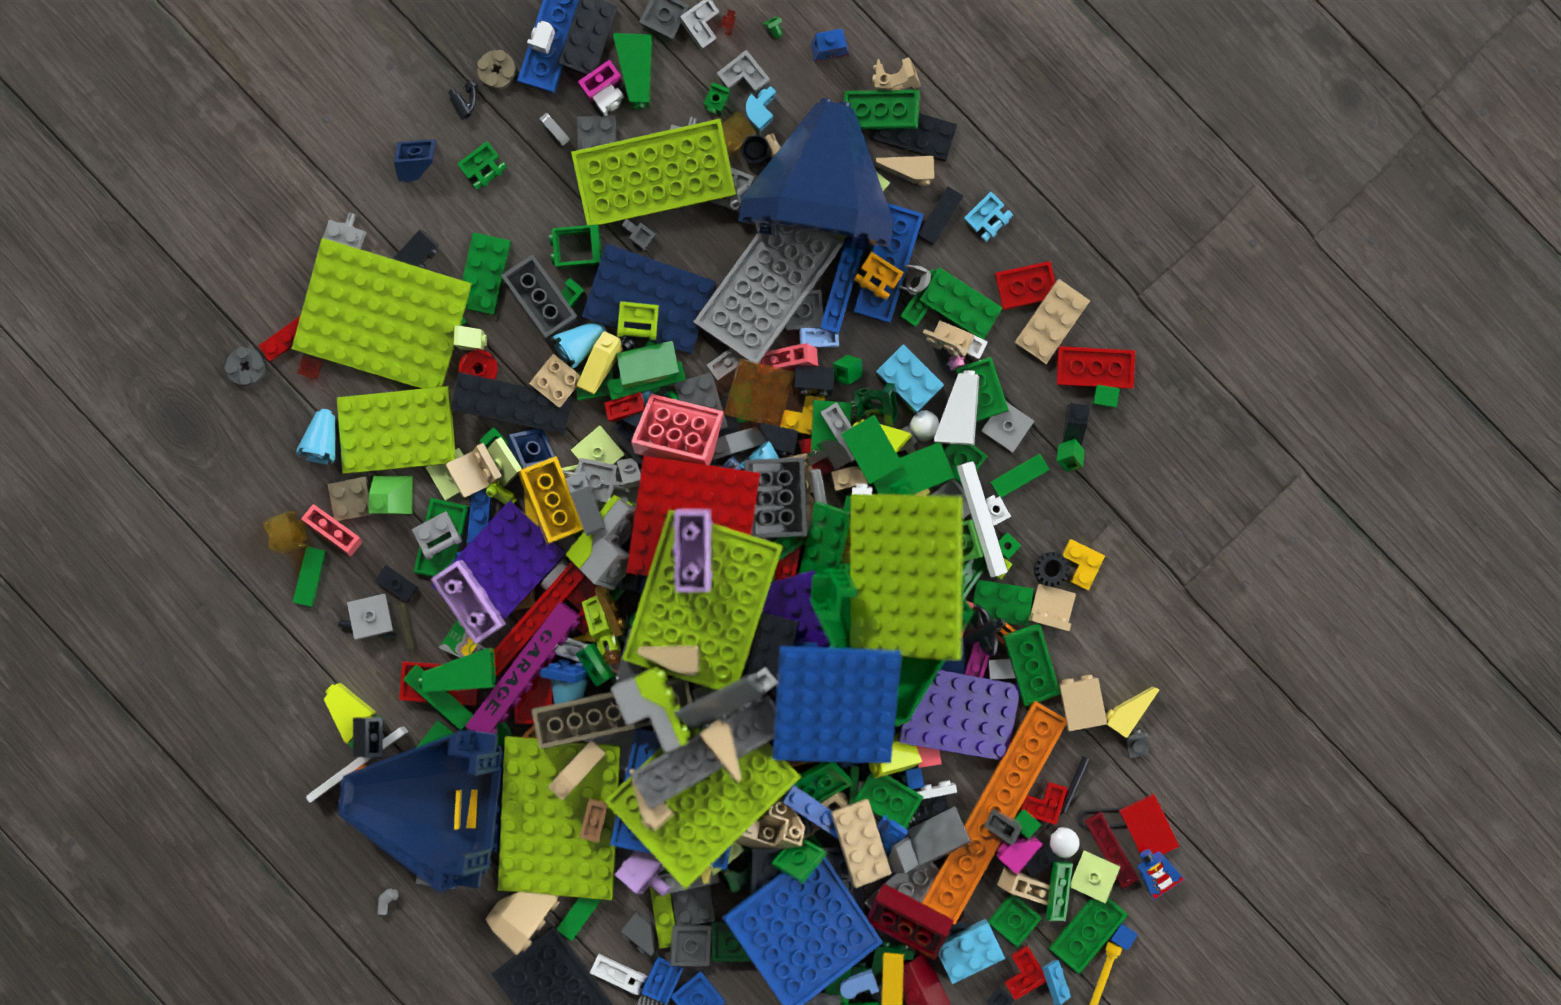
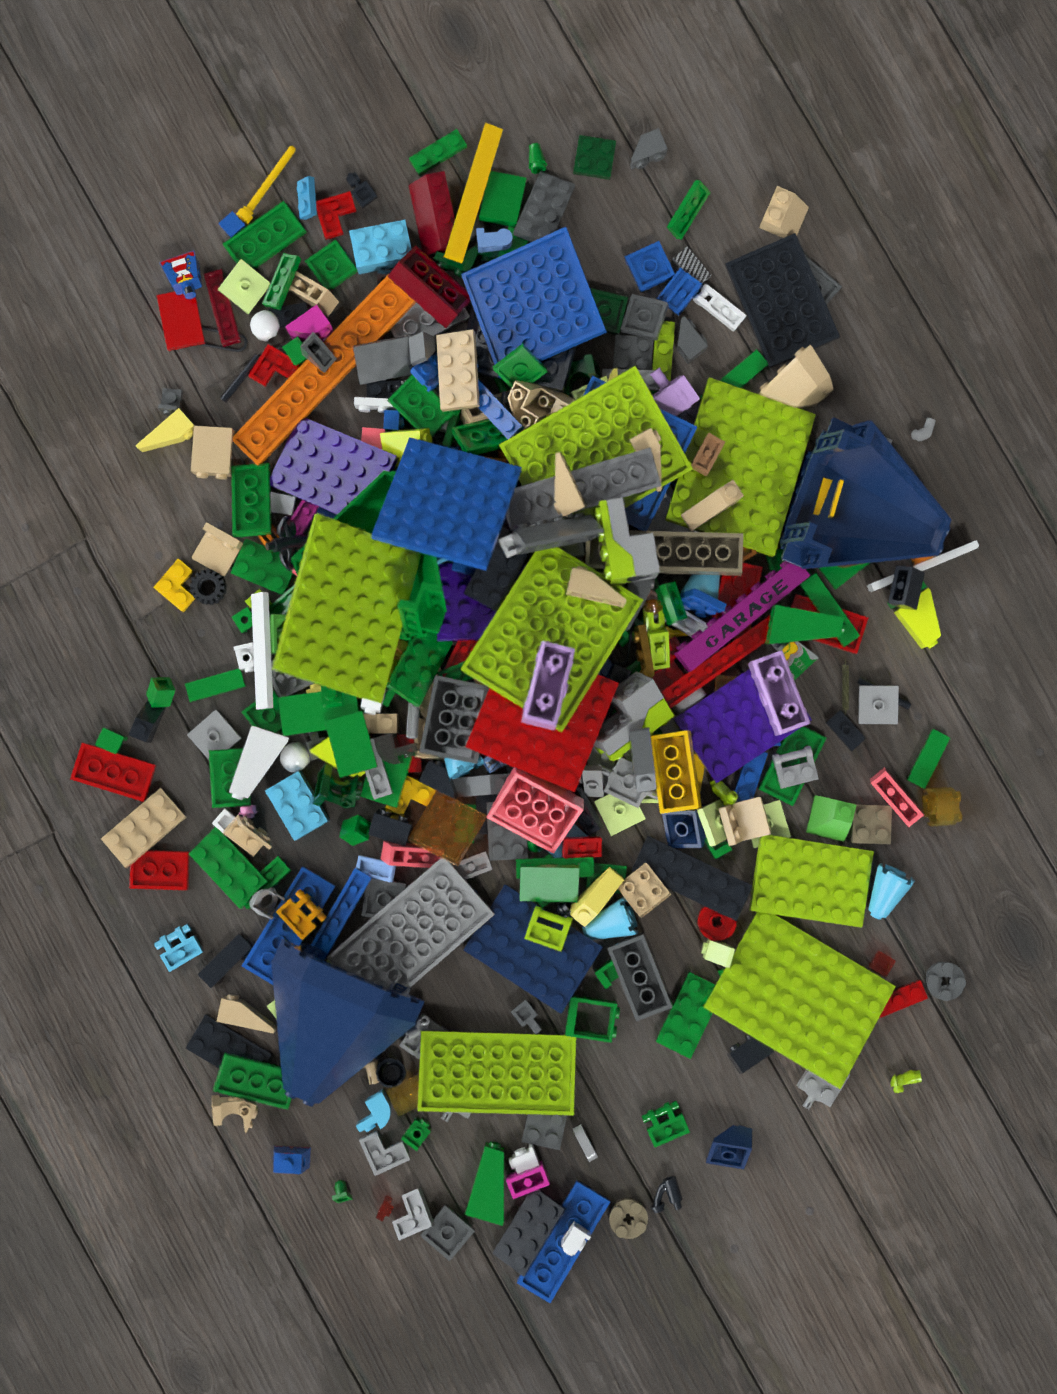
camera: 170 degrees left, 0 degrees up
(262, 264) = (907, 1077): none -> lime arm

